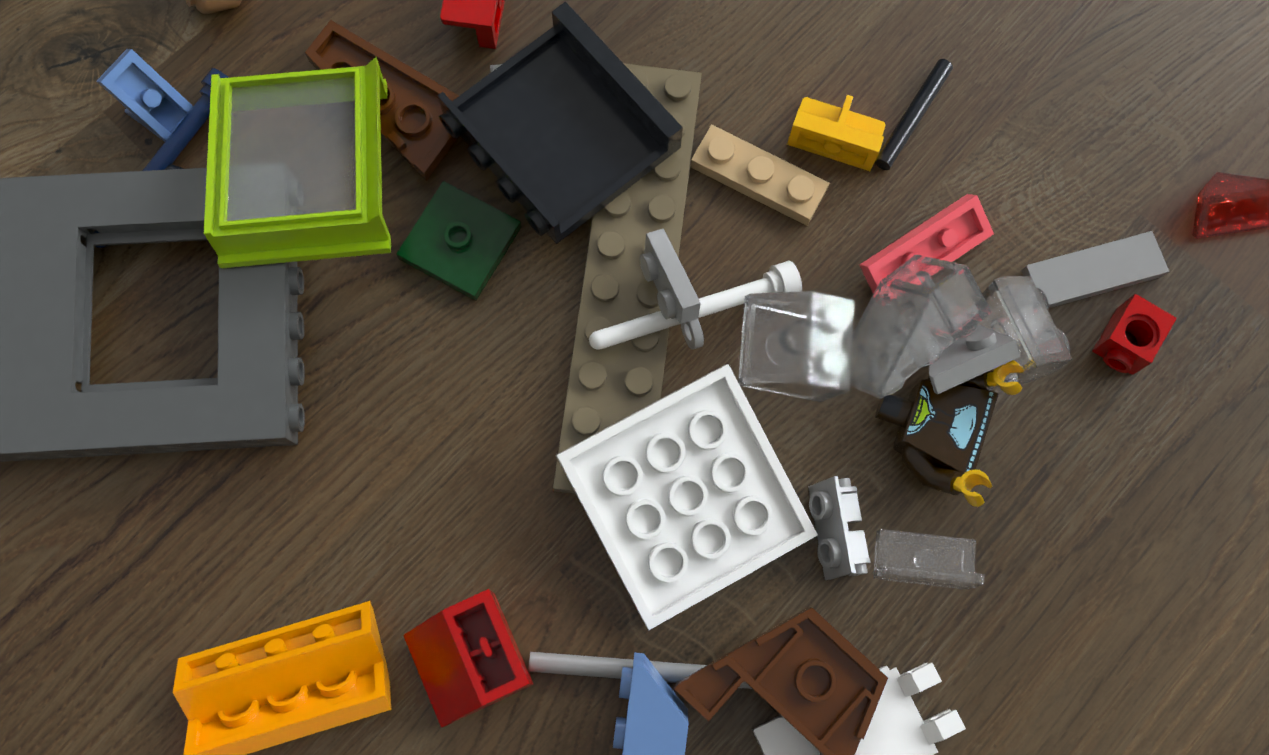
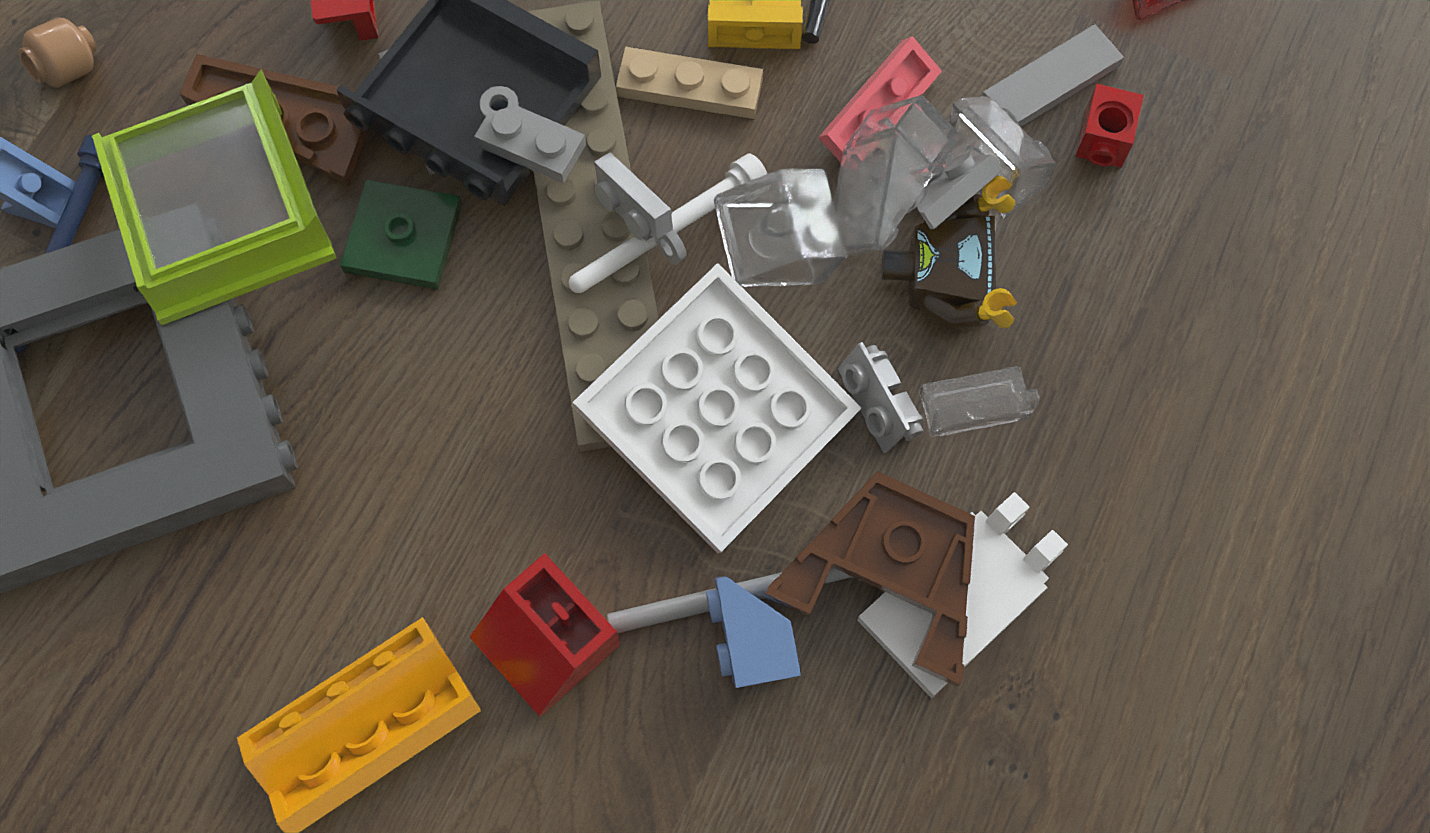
camera: 15 degrees left, 5 degrees down
(594, 188) = (527, 136): none -> light grey hinge

